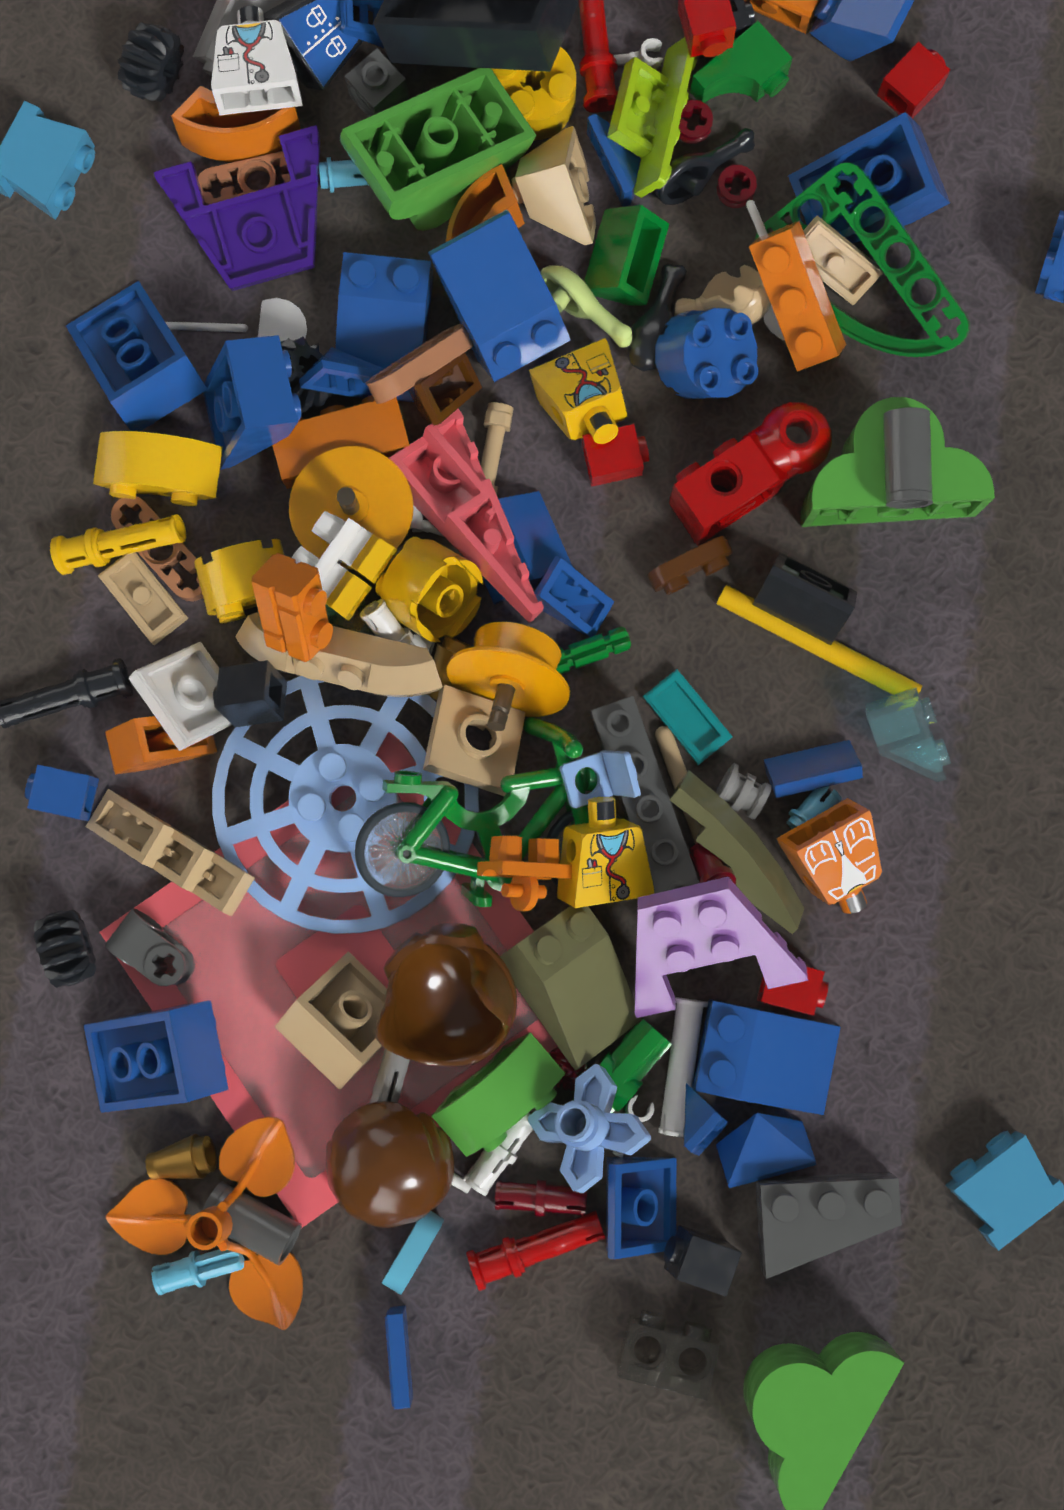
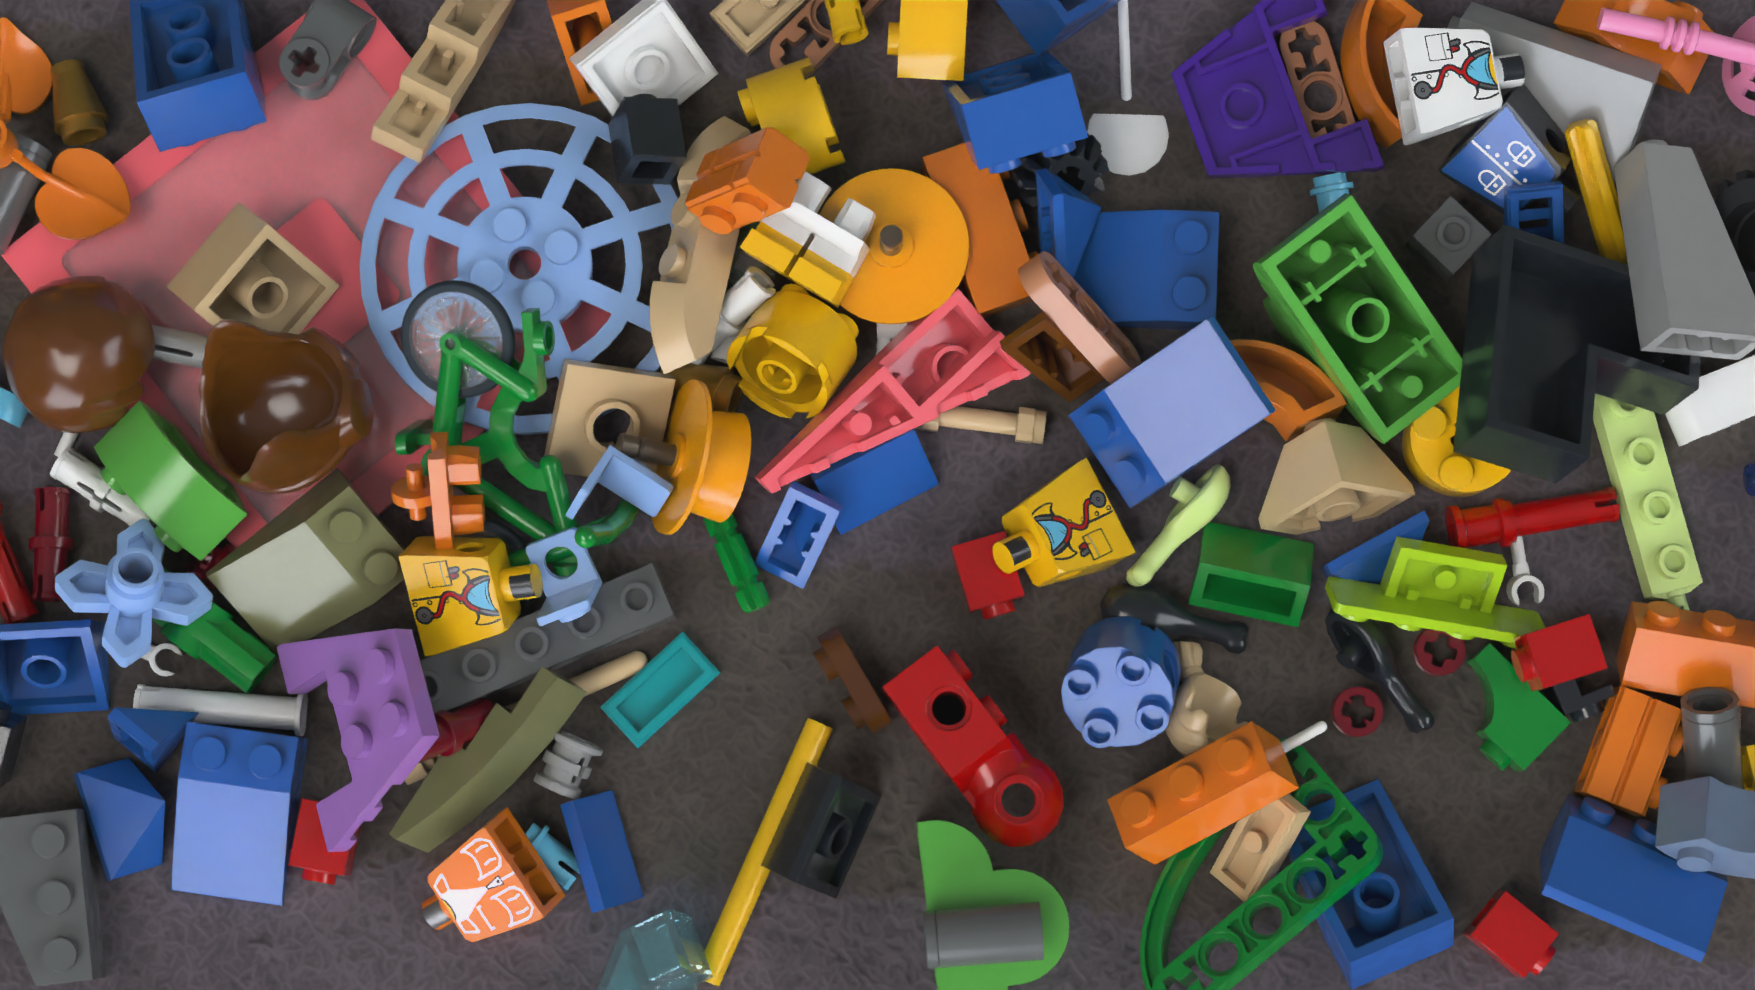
camera: 80 degrees right, 0 degrees up
(524, 723) = (628, 479): none -> light blue bracket

